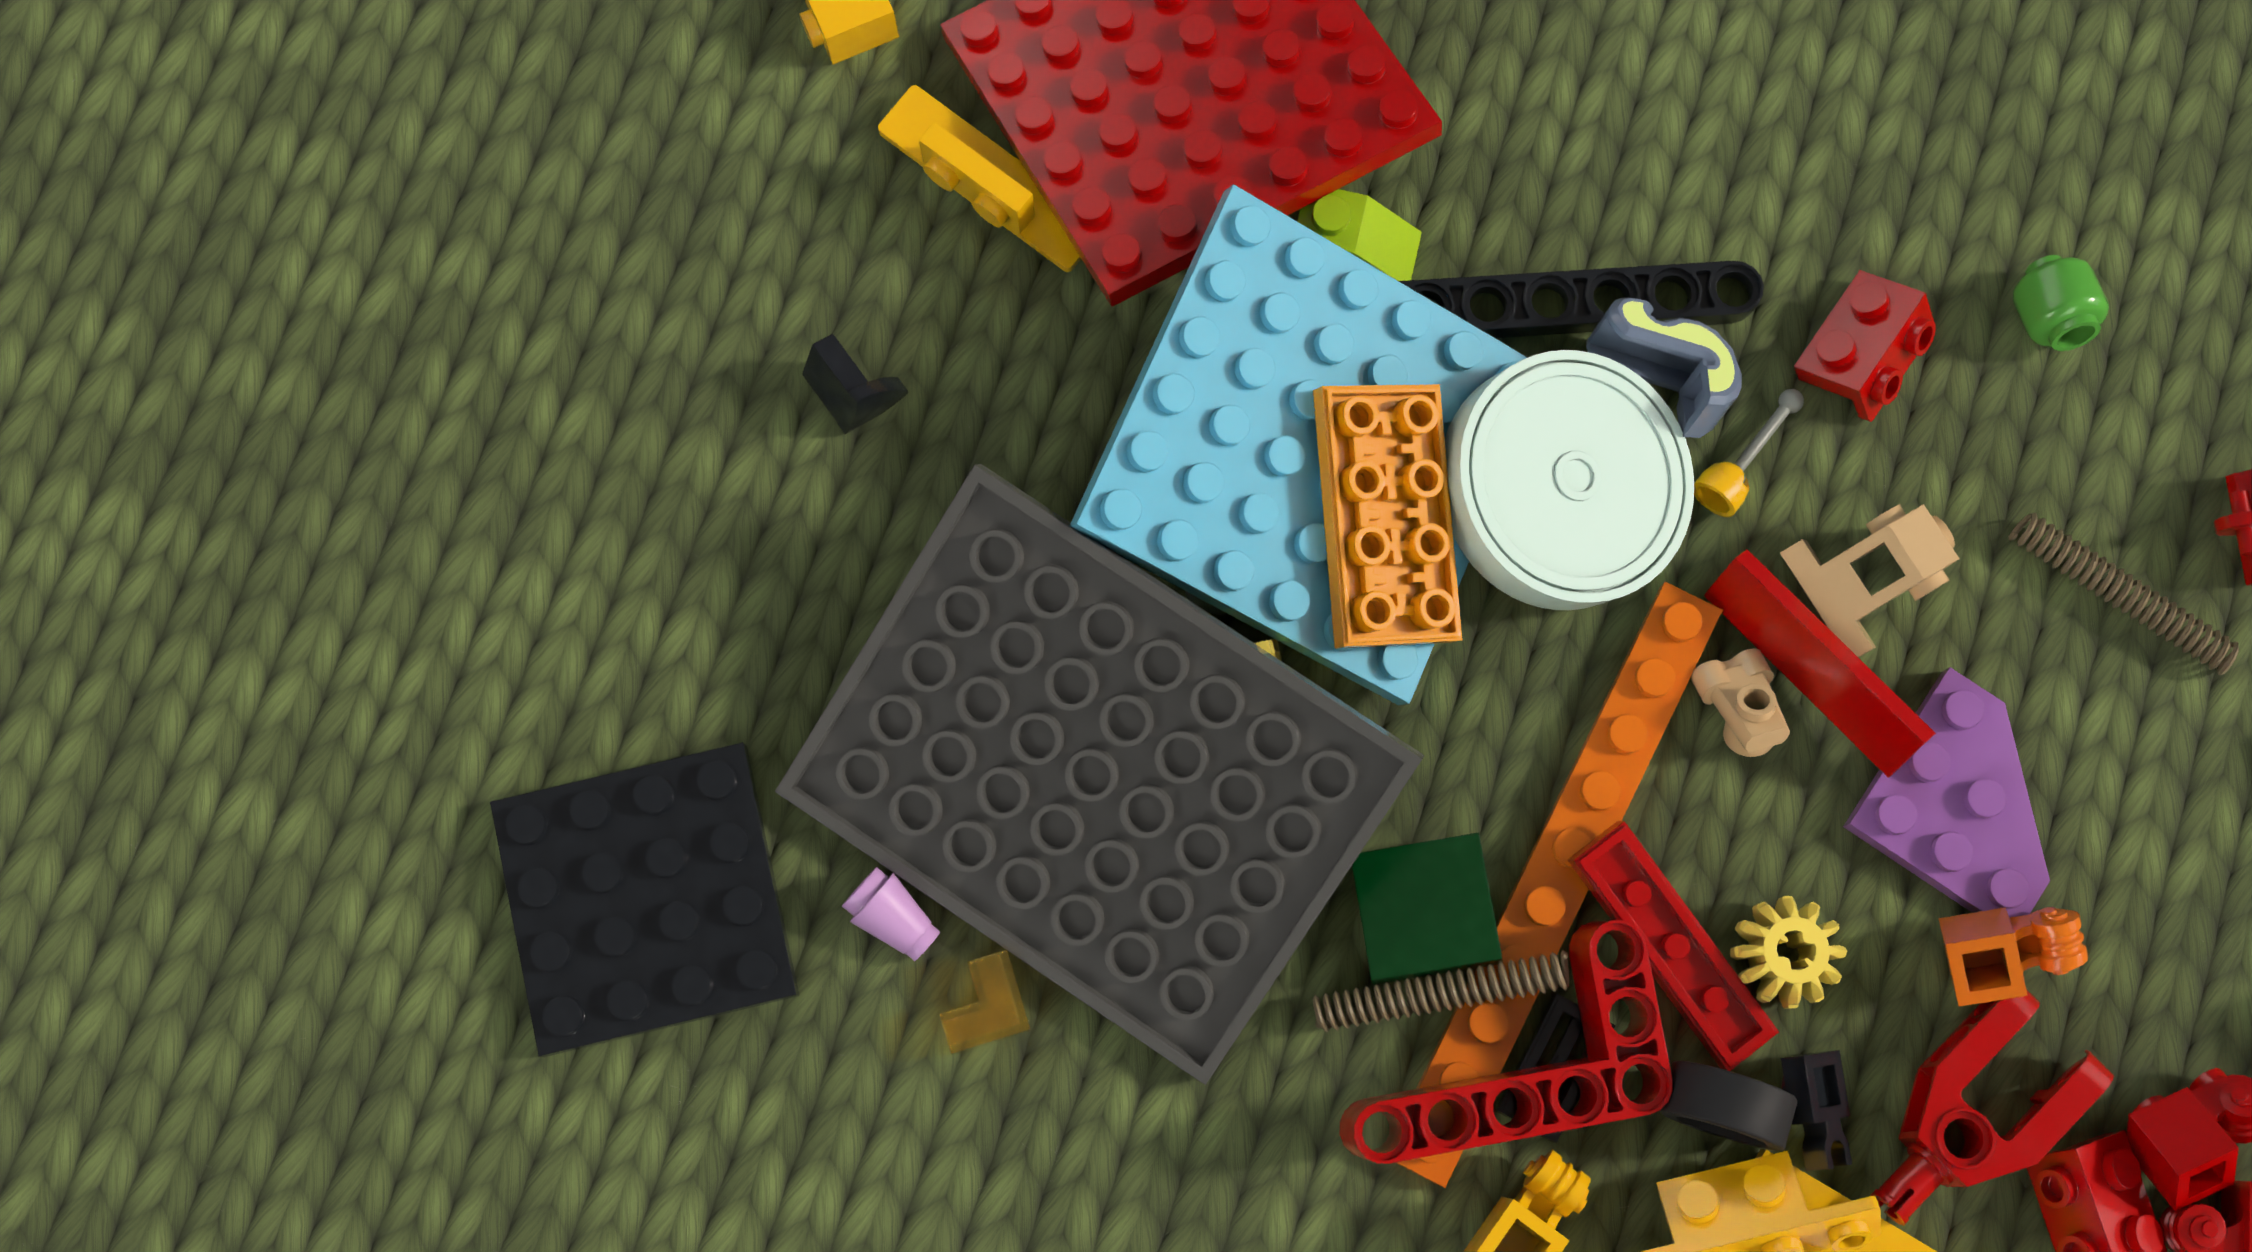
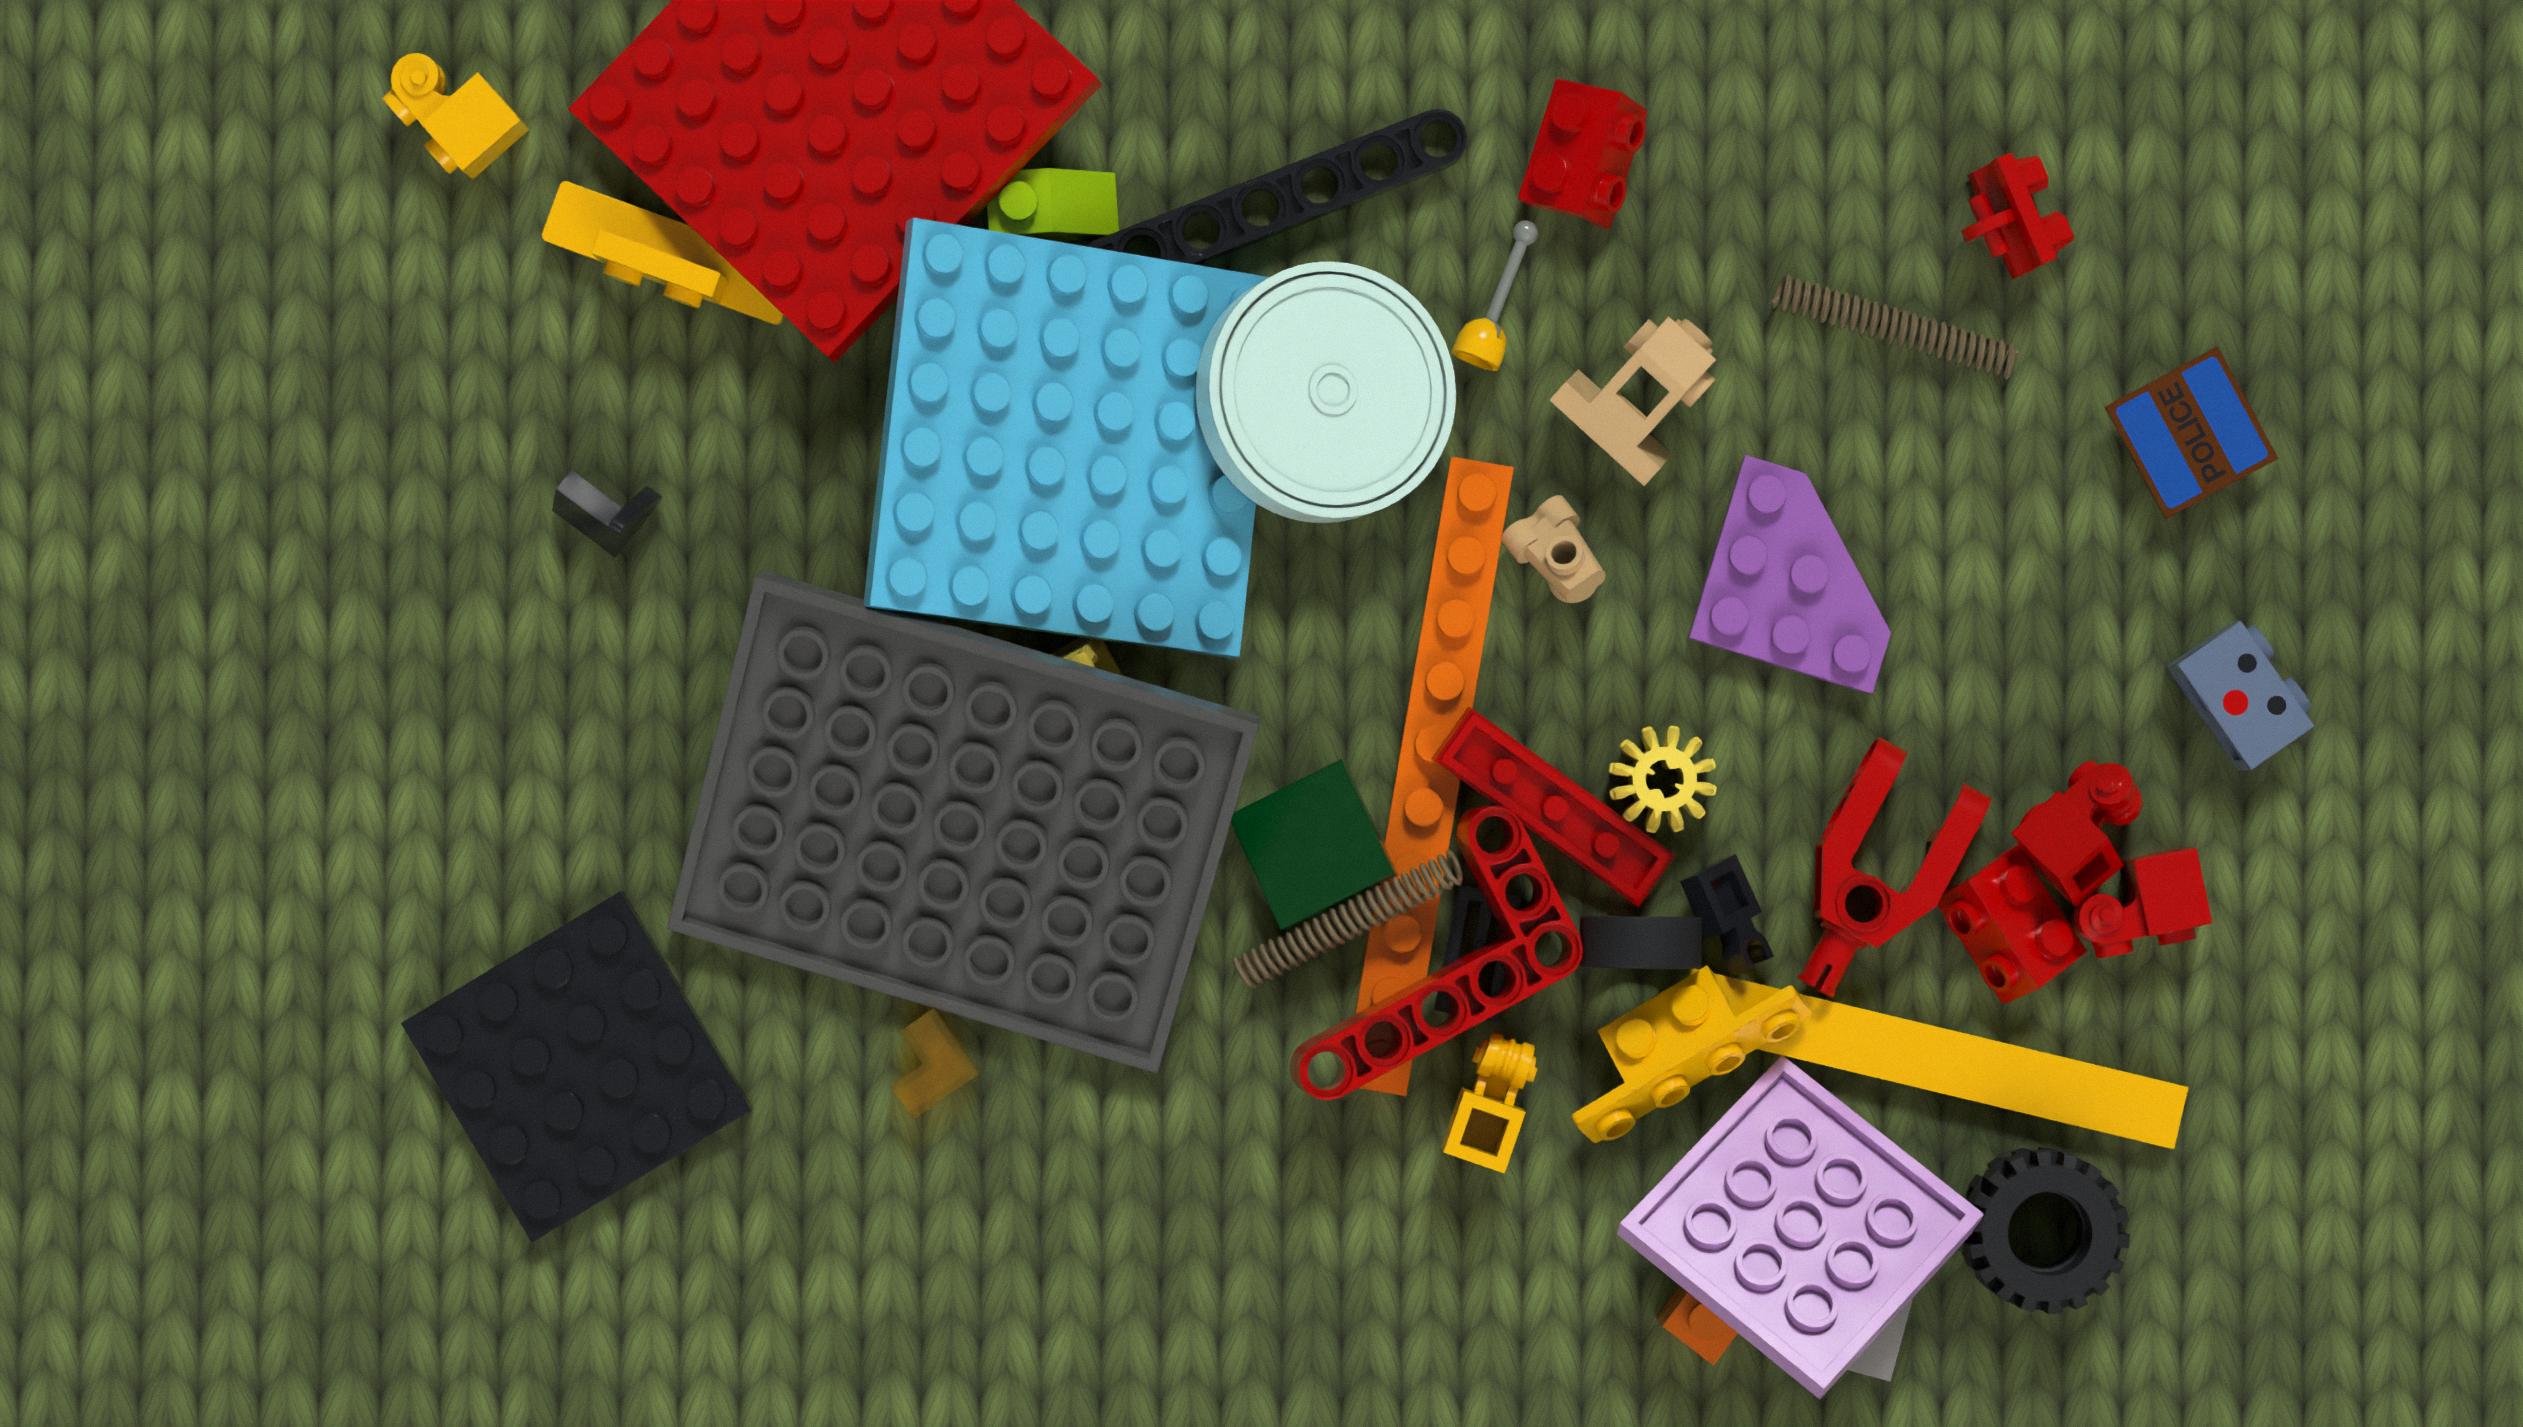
camera: 15 degrees left, 10 degrees up
(891, 914) = (813, 1008): lavender cone -> none
(1387, 515) = (1161, 489): light orange tile -> none
(1675, 356) = (1393, 230): sand blue animal -> none
(1819, 663) = (1615, 494): red tile -> none
(1992, 951) = (1847, 718): orange brick -> none
(2060, 302) = (1759, 53): bright green head -> none

